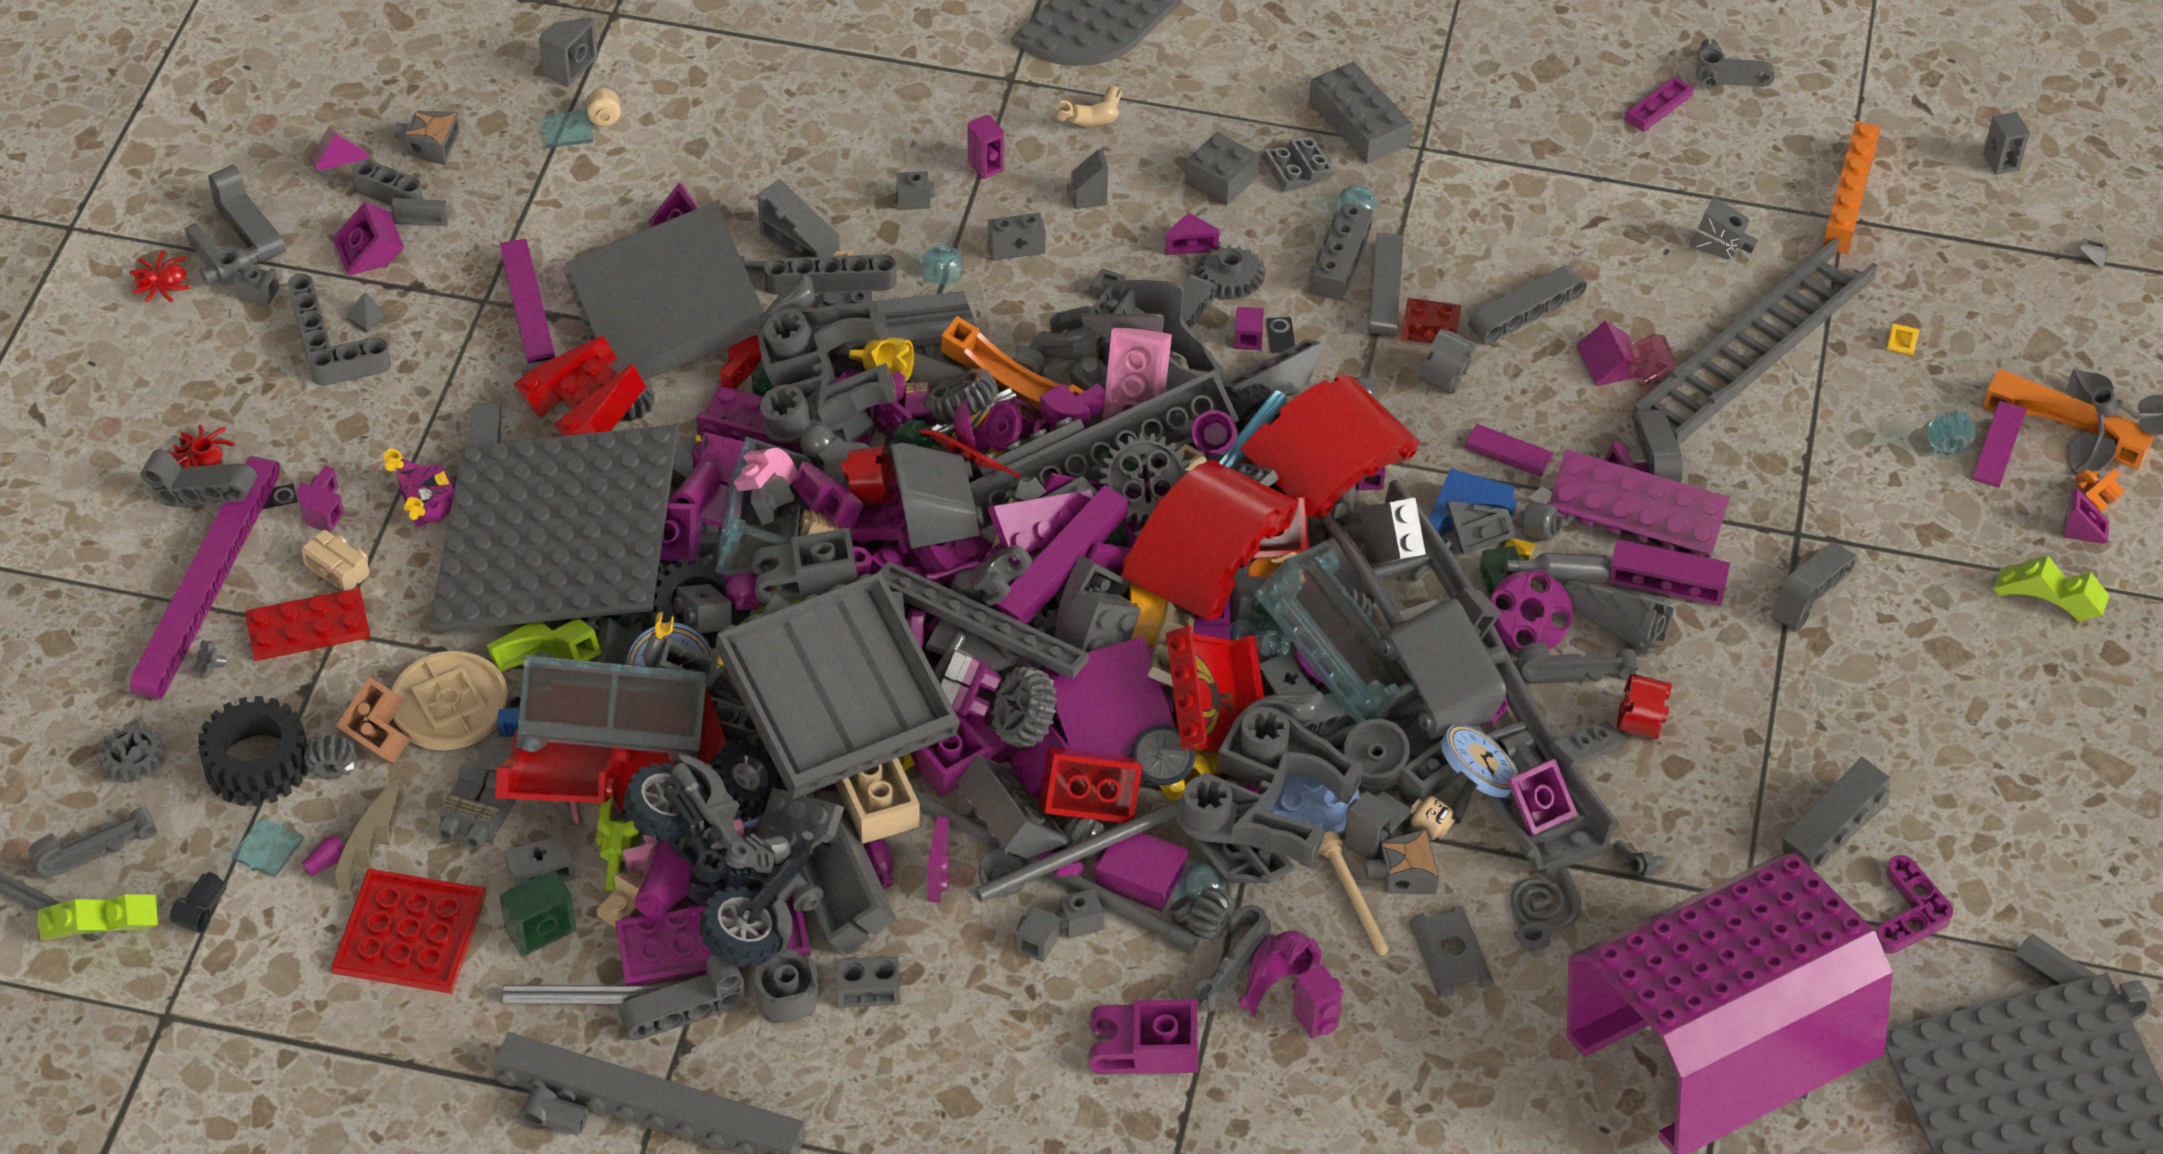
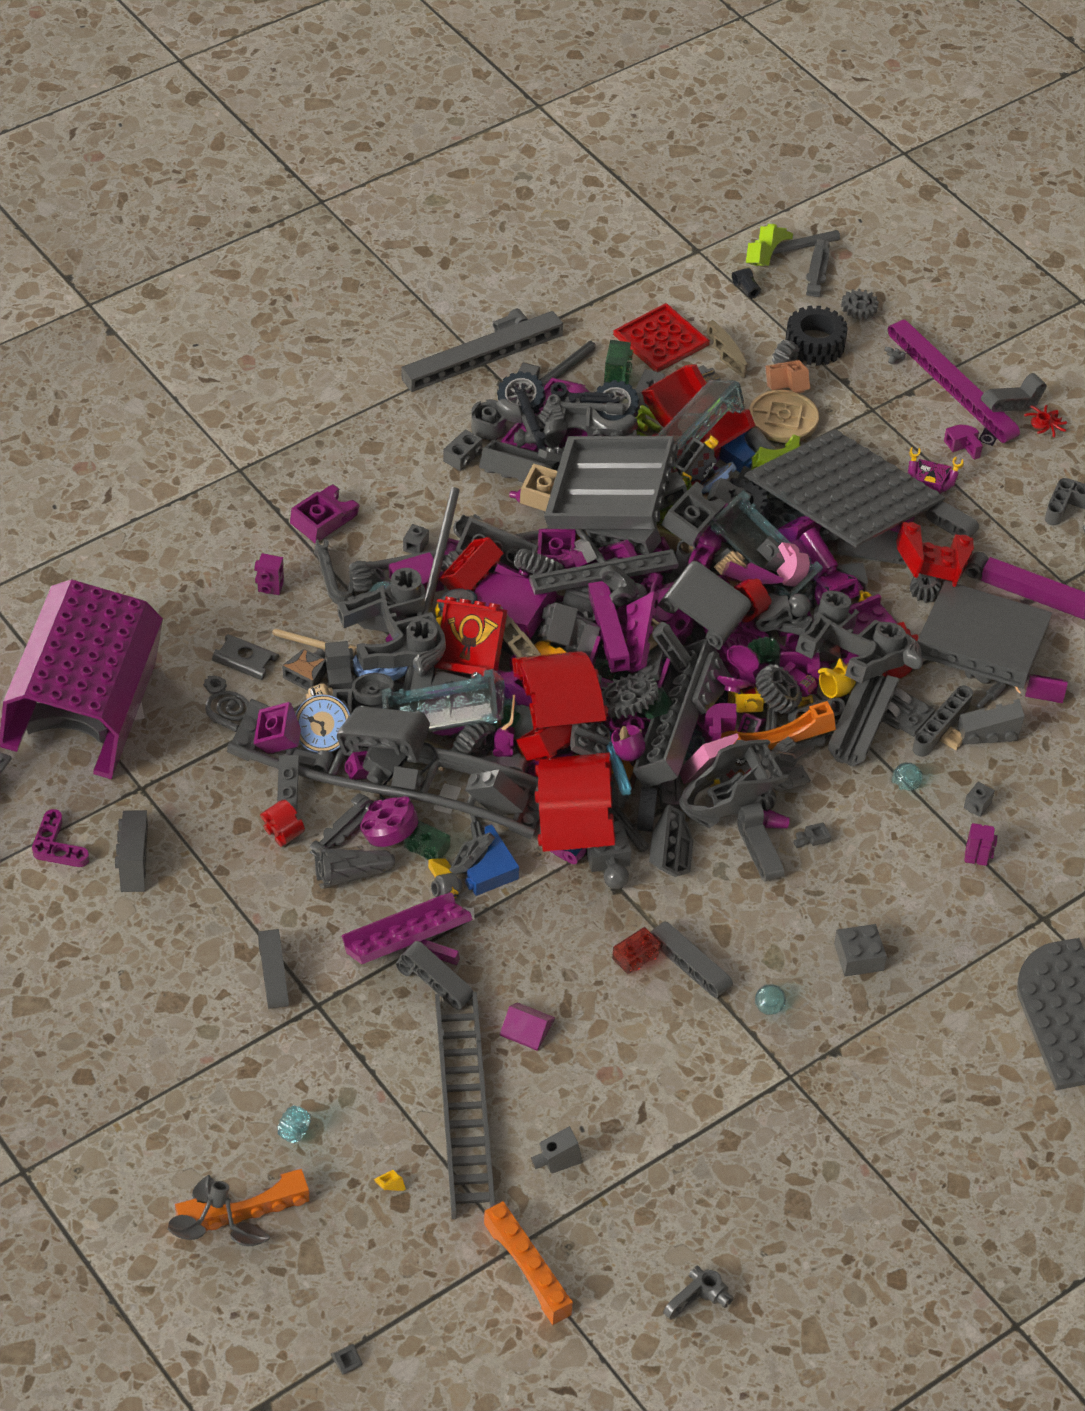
camera: 130 degrees right, 0 degrees up
(267, 847) = (759, 322): clear light blue piece -> none
(307, 624) = (886, 400): red plate -> none
(324, 855) = (732, 330): magenta cone -> none
(335, 560) = (916, 424): tan brick -> none
(939, 861) = (497, 504): magenta plate -> none
(966, 451) = (711, 645): red piece -> none
(1016, 236) = (894, 816): dark grey brick -> none
(1037, 933) = (422, 516): dark grey brick -> none
(1089, 182) = (903, 877): dark grey slope -> none
(1092, 116) = (968, 924): tan arm -> none
(1191, 236) = (818, 898): magenta slope -> none
(1233, 270) = (775, 900): dark grey gear -> none
(1249, 328) = (718, 869): magenta brick -> none
(1277, 958) = (310, 583): magenta hair -> none
(1280, 334) = (704, 890): black sticker -> none
(1298, 164) = (833, 997): dark grey slope -> none
(1341, 251) = (736, 957): dark grey brick -> none
(1360, 112) = (844, 1055): dark grey brick -> none
(1448, 360) = (598, 929): dark grey brick -> none
(1509, 450) = (512, 920): magenta tile -> none
(1527, 304) = (606, 1013): dark grey beam -> none
(1565, 567) = (402, 863): dark grey piece -> none
(1639, 863) = (203, 756): dark grey piece -> none
(1652, 358) = (495, 1029): clear pink brick -> none
(1659, 104) = (706, 1233): magenta tile -> none
(1674, 572) = (350, 909): magenta brick -> none
(1999, 444) = (264, 1149): magenta slope -> none
(2006, 143) = (471, 1377): dark grey brick -> none
(2041, 578) = (156, 1065): lime arch -> none
(2084, 520) = (170, 1138): magenta slope -> none
(2108, 487) = (184, 1162): orange hips -> none

